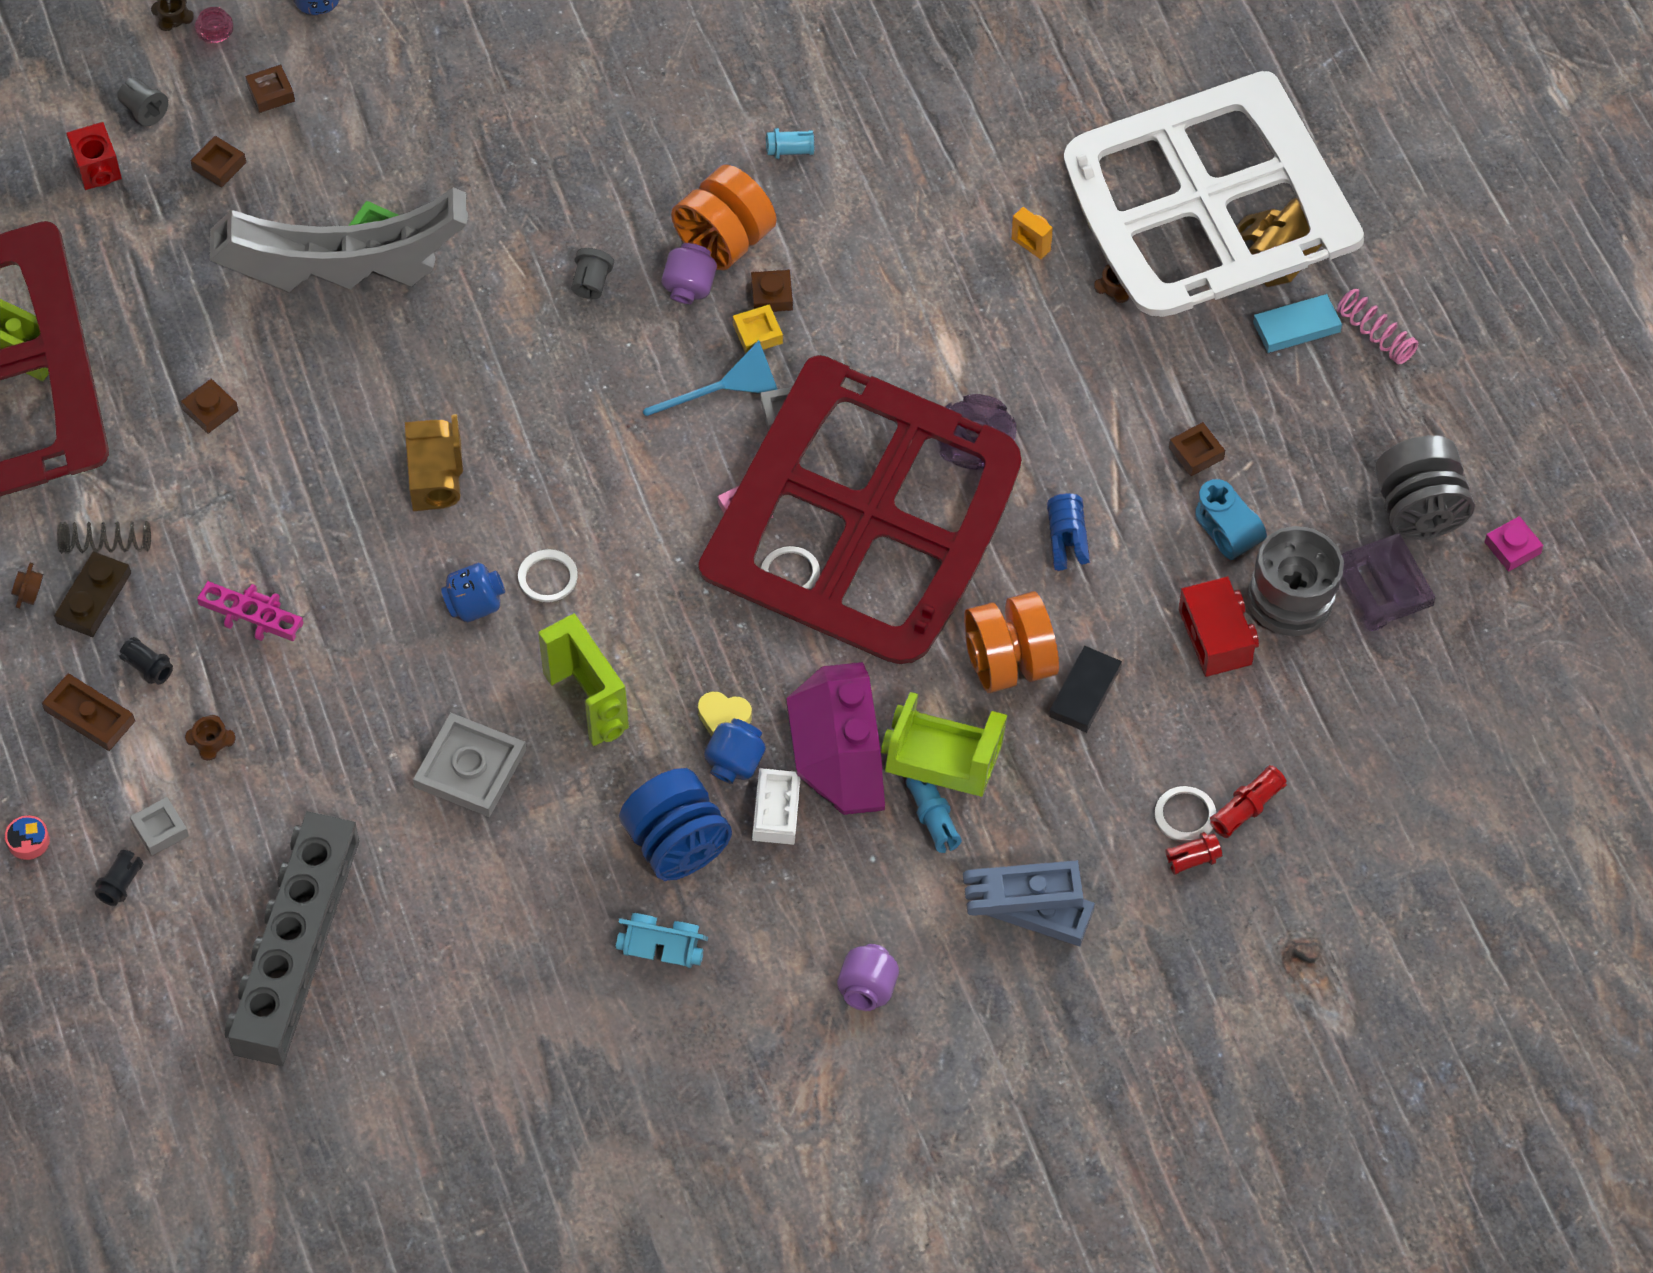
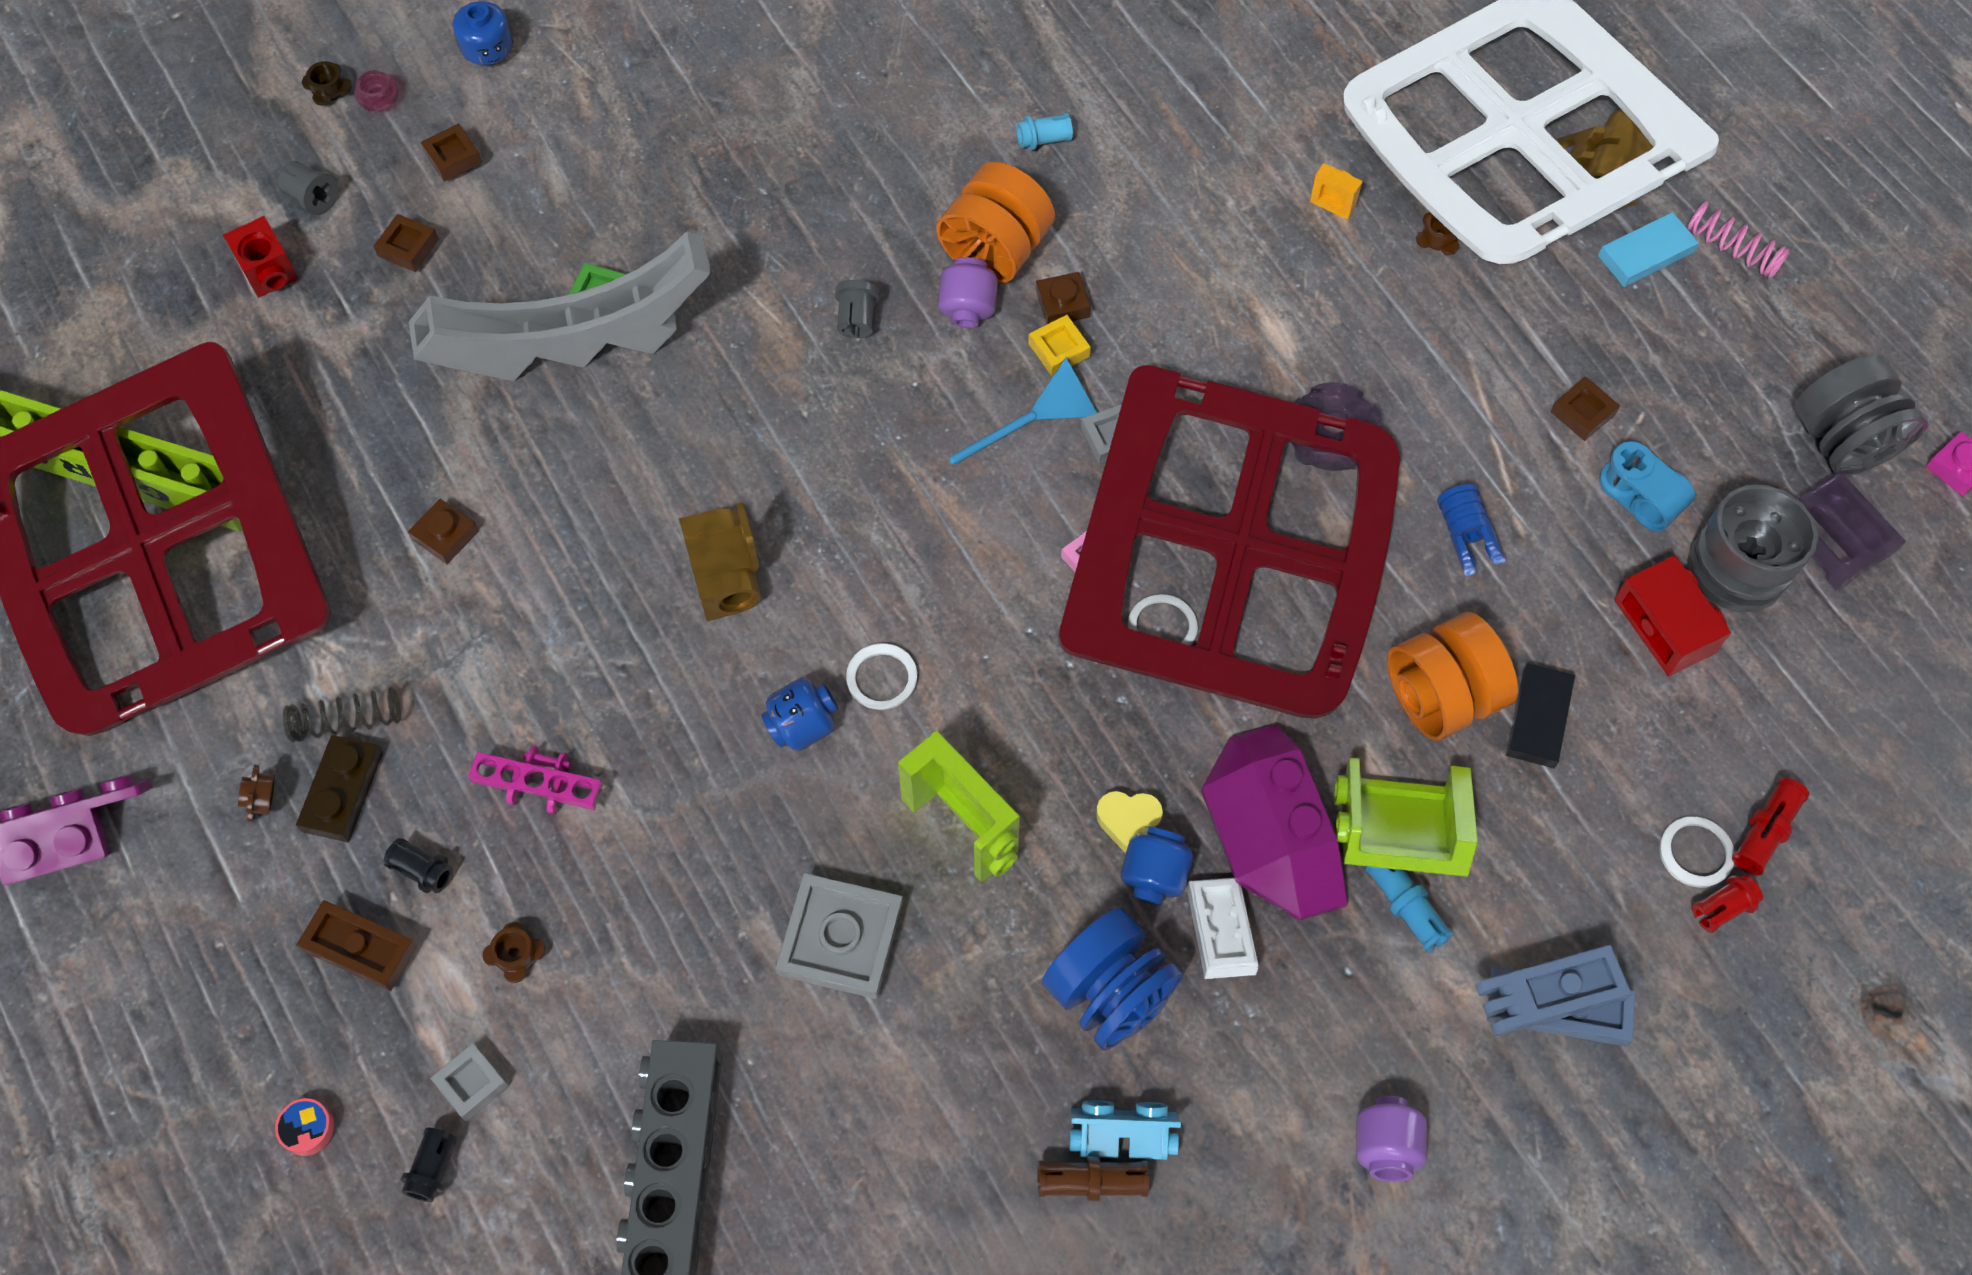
camera: 10 degrees left, 5 degrees up
(628, 969) = (1093, 1178): none -> reddish brown pin

